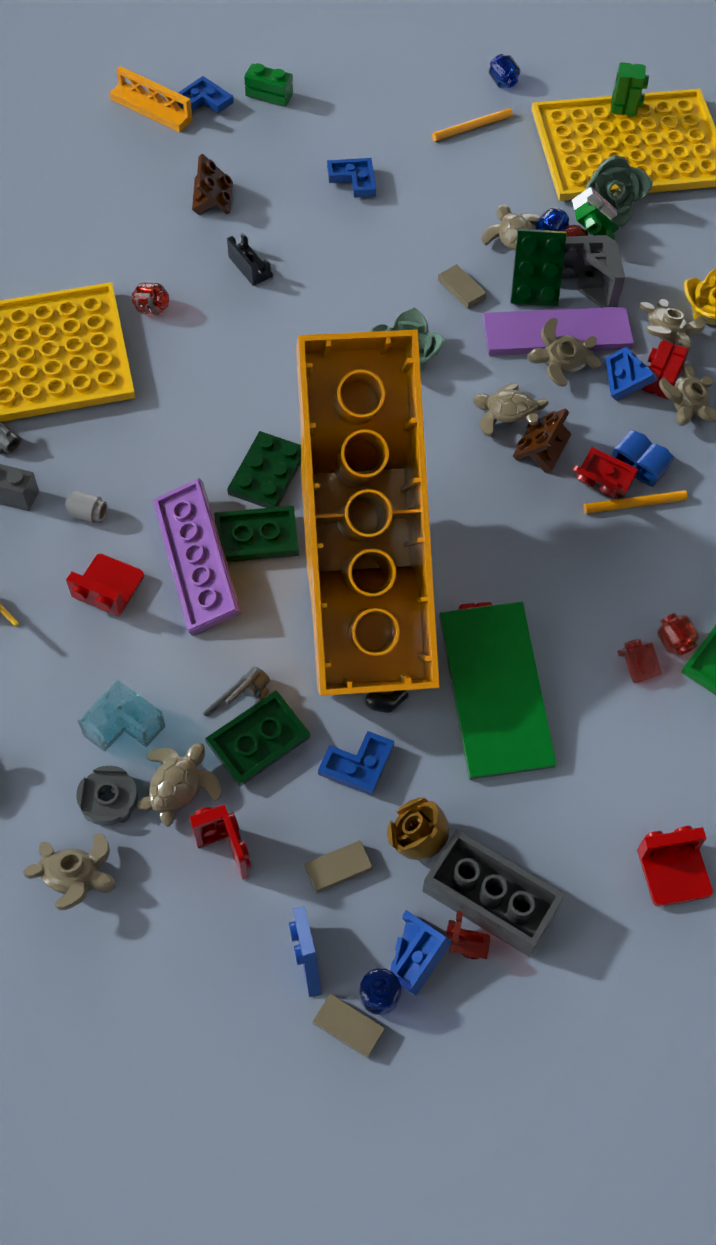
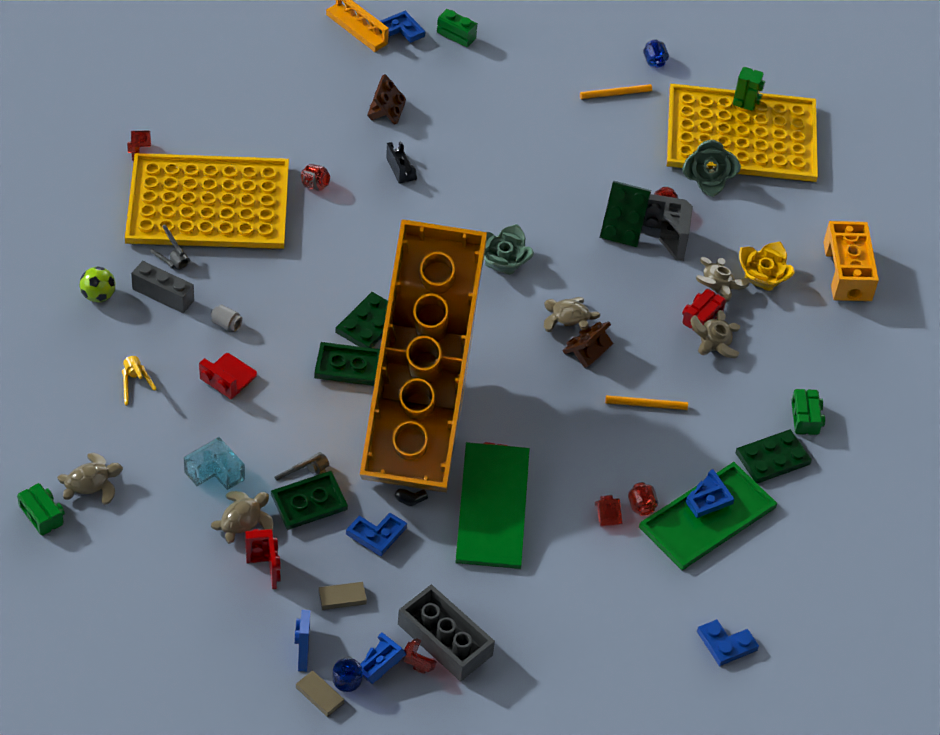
camera: 10 degrees right, 10 degrees down
(73, 871) = (155, 554): dark tan animal -> none
(107, 812) = (191, 524): dark grey plate -> none
(196, 557) = (298, 369): medium lavender tile -> none
(357, 172) = (506, 110): blue plate -> none
(419, 829) = (406, 582): pearl gold cylinder -> none
(462, 286) = (564, 217): dark tan tile -> none
(508, 227) = (618, 174): dark tan animal -> none
(521, 330) = (630, 265): medium lavender tile -> none
(552, 220) = (653, 181): clear blue head -> none
(563, 353) = (626, 283): dark tan animal -> none
(595, 213) = (688, 183): green hips -> none
(607, 472) = (628, 376): red bracket -> none
(627, 373) = (671, 307): blue wing -> none
(642, 454) = (661, 371): blue brick -> none
(675, 866) = (584, 646): red bracket -> none

